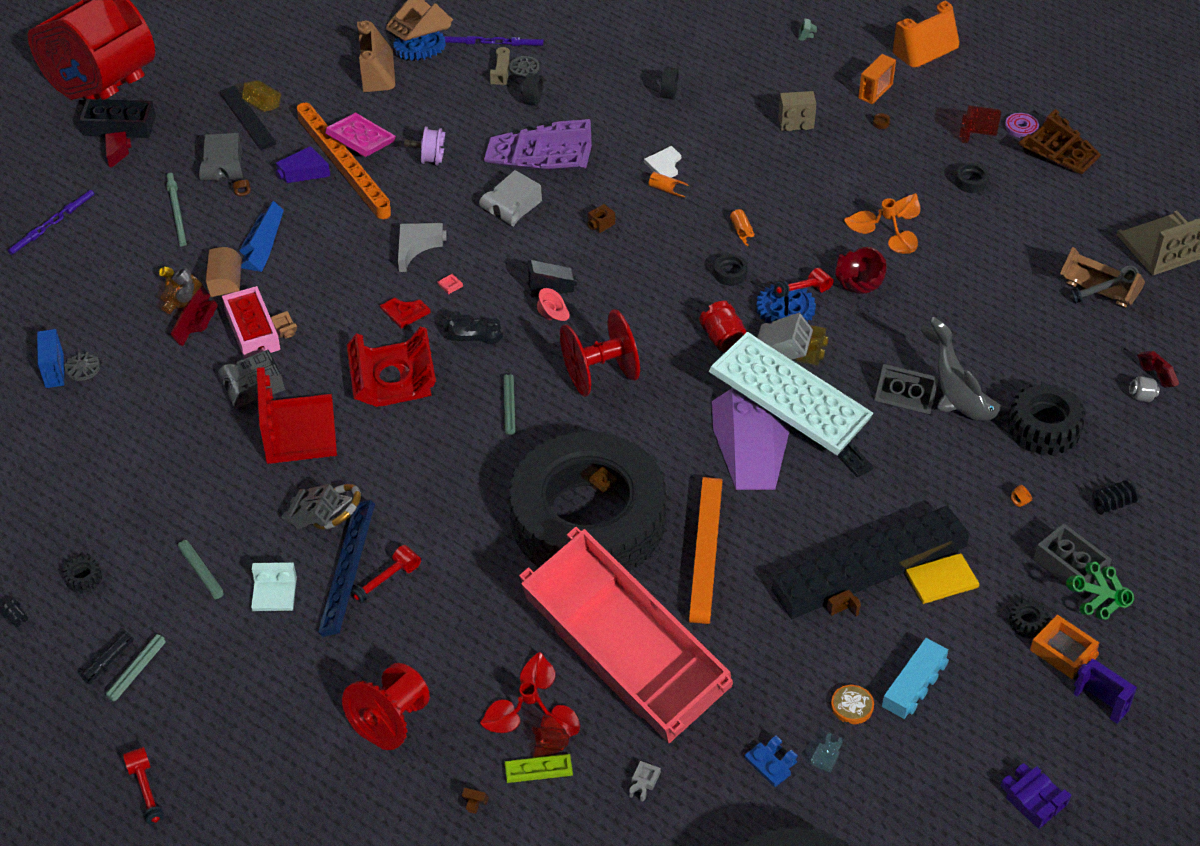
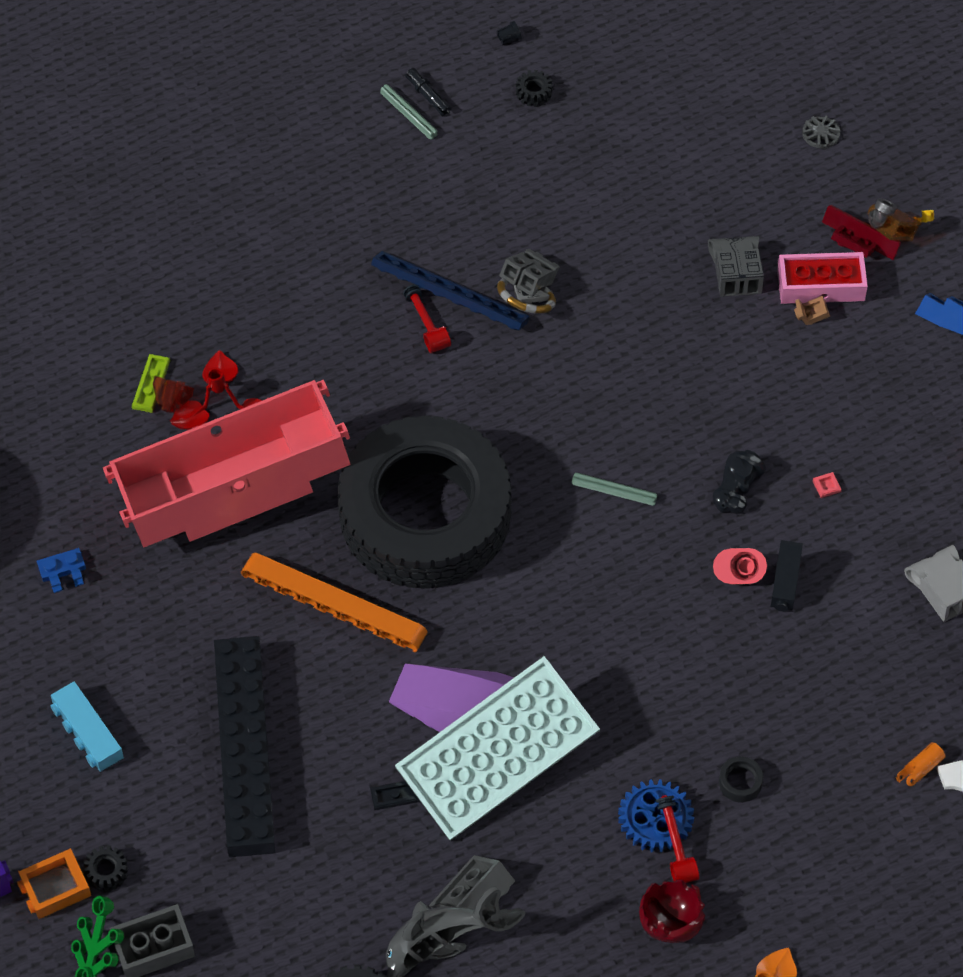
camera: 110 degrees right, 10 degrees up
(50, 358) = (830, 98): blue window -> none
(137, 763) = (301, 92): red piece -> none
(201, 569) = (502, 179): sand green axle -> none
(223, 271) = (908, 265): medium nougat brick -> none
(273, 586) = (448, 227): light aqua bracket -> none
(295, 426) = (656, 277): red bracket -> none
(378, 712) = (258, 269): red piece -> none
(404, 312) = (796, 430): red tile -> none
(411, 359) = (699, 364): red panel -> none
(418, 238) = (907, 461): light grey arch -> none
(474, 799) = (141, 322): reddish brown tile -> none
(601, 218) = (879, 676): reddish brown brick -> none
(620, 346) = (624, 545): red piece -> none
(644, 777) = (94, 459): light grey plate -> none
(722, 325) = (636, 727): red piece -> none
(741, 225) = (814, 821): orange piece -> none
(787, 335) = (587, 777): light grey piece -> none
(815, 349) = (583, 812): clear yellow brick -> none
(827, 754) = (45, 615): clear light blue plate -> none
(842, 601) = (205, 706): reddish brown bracket -> none
(852, 704) = (89, 663): tile -> none
(942, 578) = (197, 812): yellow tile -> none
(1023, 494) = (265, 942): orange tile -> none

